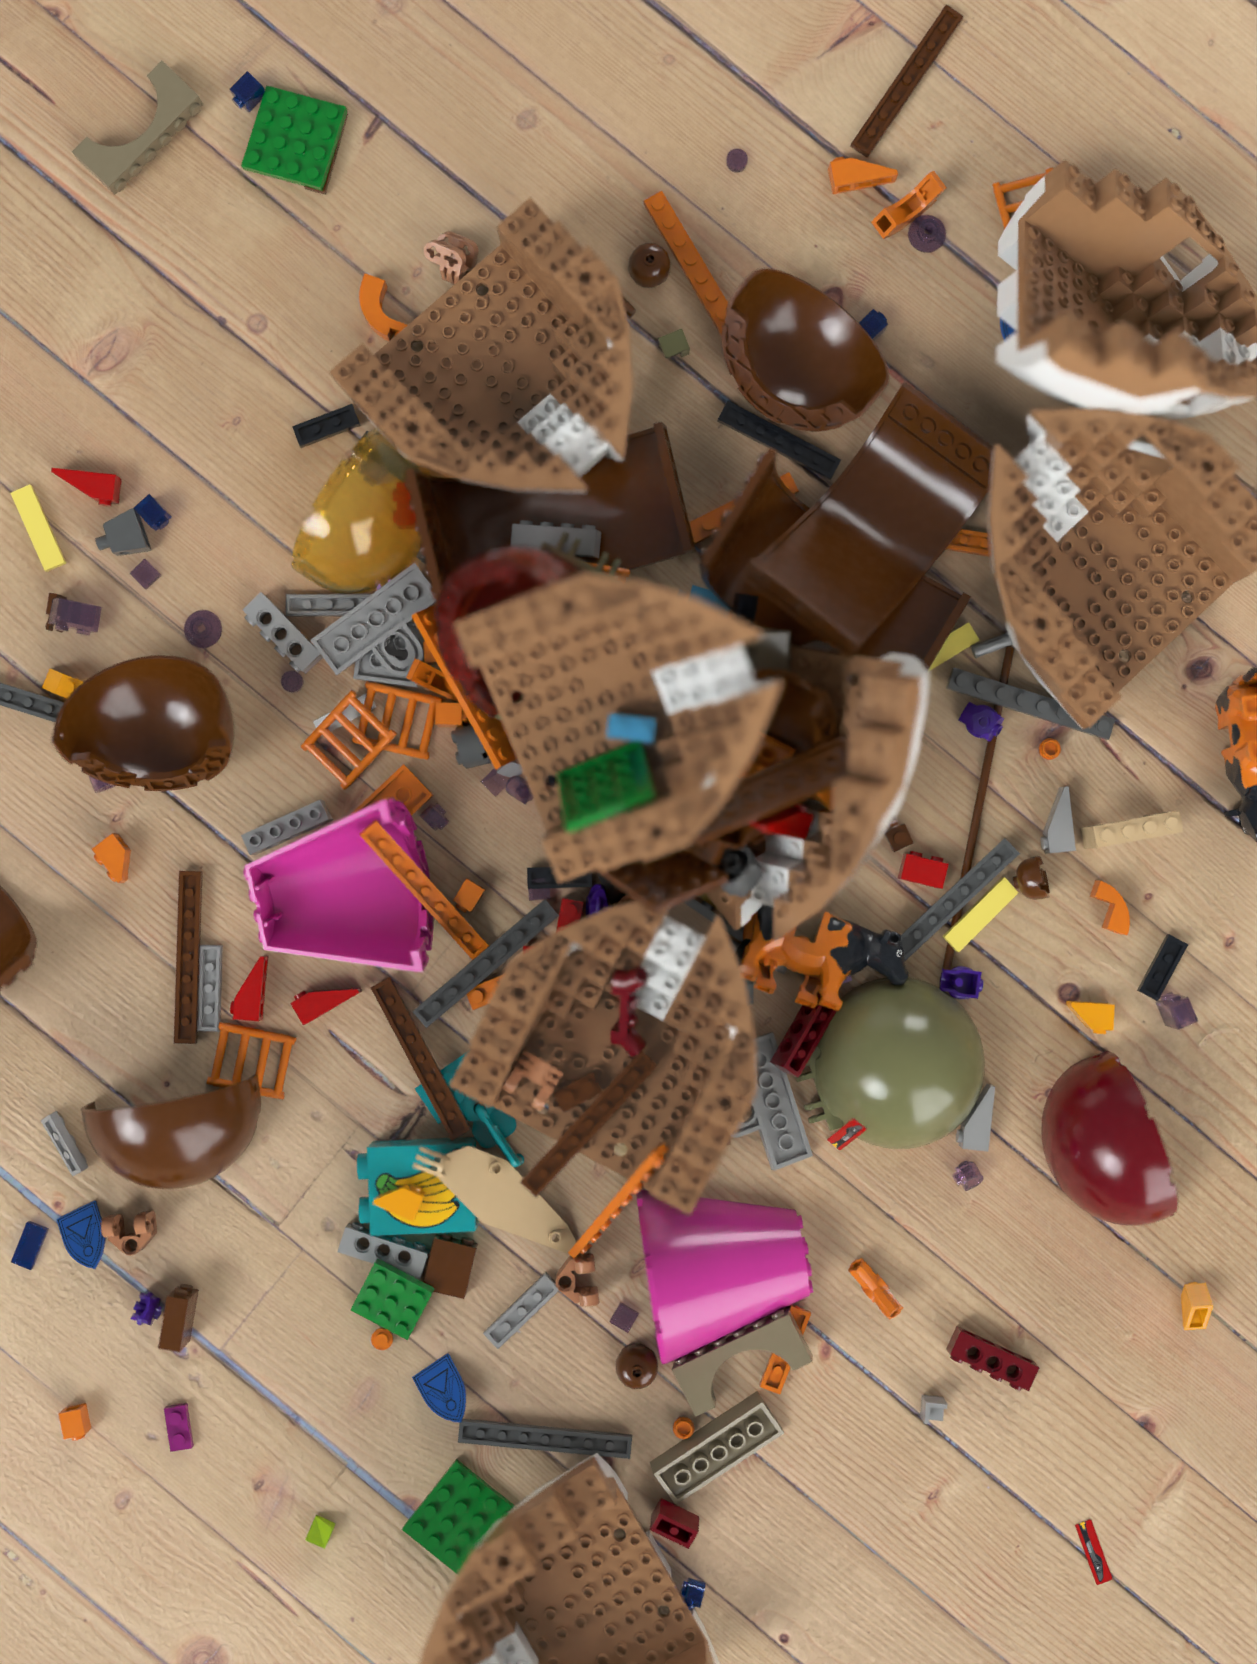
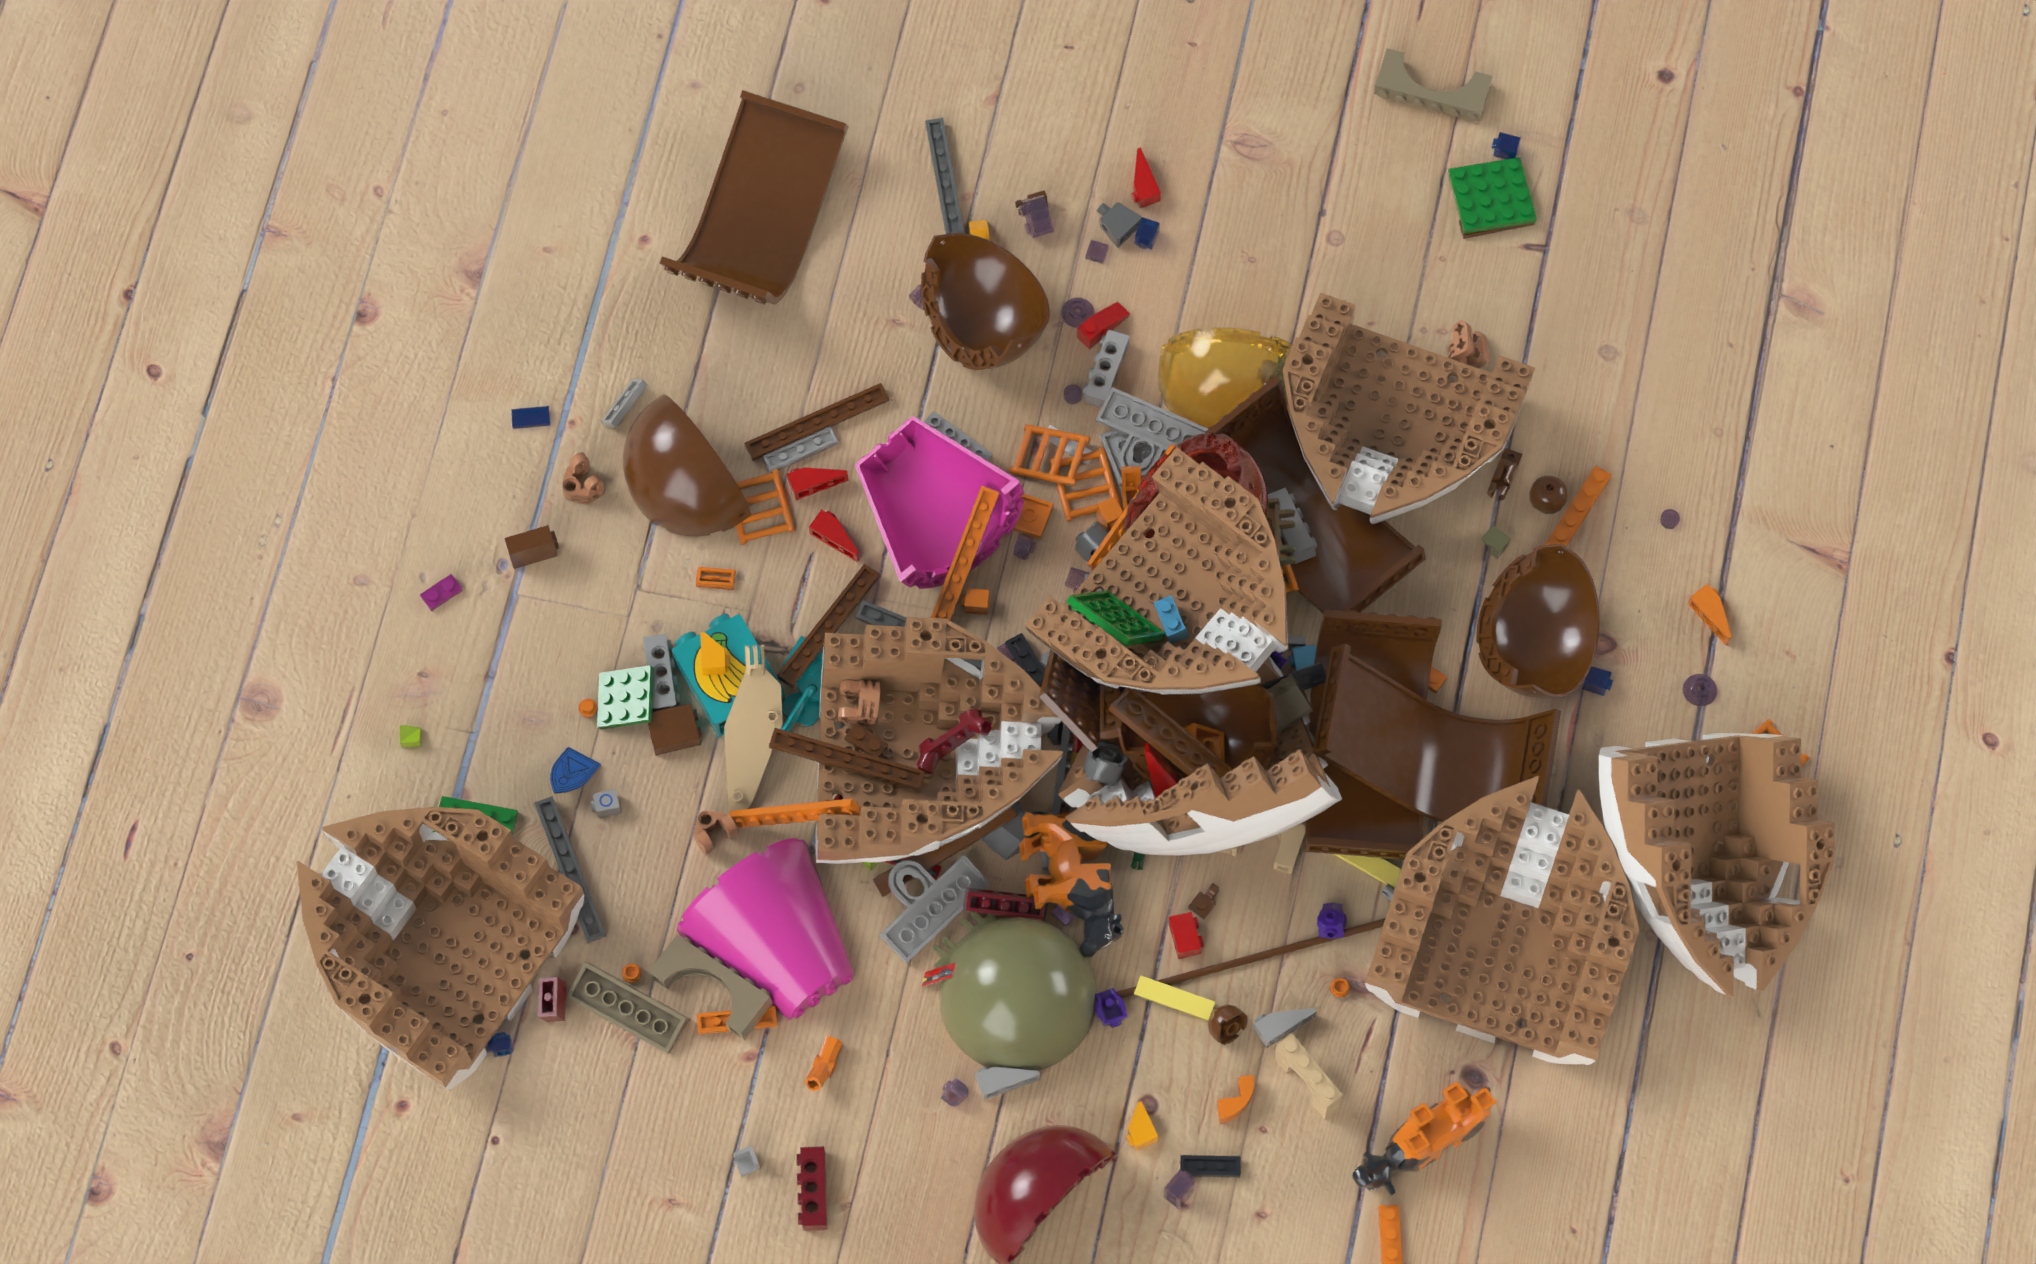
camera: 65 degrees right, 20 degrees down
(38, 528) = (1089, 161): light yellow tile -> none
(75, 1421) = (409, 513): orange brick -> none
(83, 1234) = (559, 449): blue shield -> none
(115, 856) = (867, 332): orange slope -> none
(147, 1309) = (524, 521): dark purple hand -> none
(230, 611) = (1097, 325): none -> red slope
(316, 1126) = (707, 584): none -> orange tile
(322, 604) = (1143, 383): light grey tile -> none
(326, 426) = (1281, 320): black plate -> none
(371, 299) = (1398, 308): orange arch -> none
(494, 1370) = (606, 803): none -> light grey brick
(521, 1310) = (663, 802): light grey tile -> none
(624, 1317) = (697, 883): tile -> none
(636, 1357) = (660, 918): reddish brown cylinder -> none
(779, 440) = (1467, 657): black plate -> none
(906, 81) = (1810, 614): reddish brown tile -> none
(913, 205) = (1706, 662): orange arch -> none
(957, 897) = (1173, 969): dark grey plate -> none
(1022, 702) = (1365, 946): dark grey plate -> none

